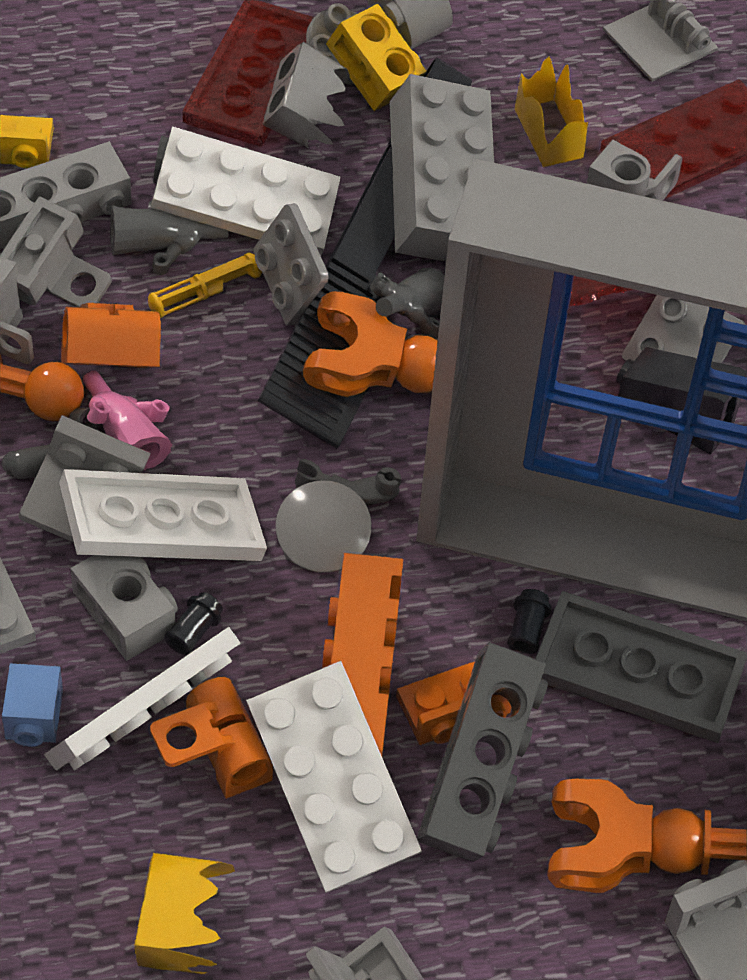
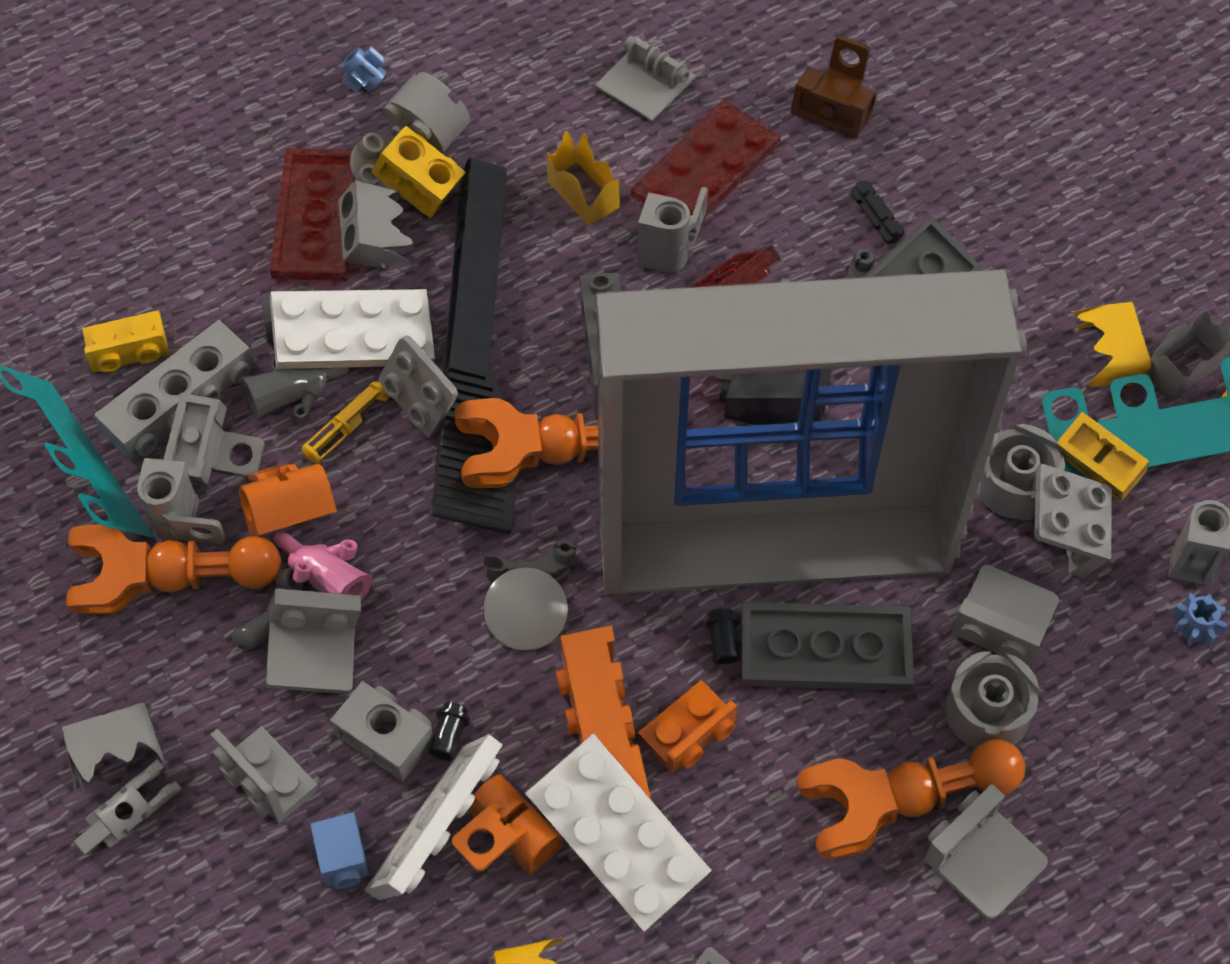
camera: 15 degrees left, 5 degrees up
(161, 515) = (389, 647): white plate -> none
(412, 298) = (532, 378): dark grey piece -> none
(433, 142) = (514, 260): light grey brick -> none
(445, 821) = (718, 790): dark grey brick -> none

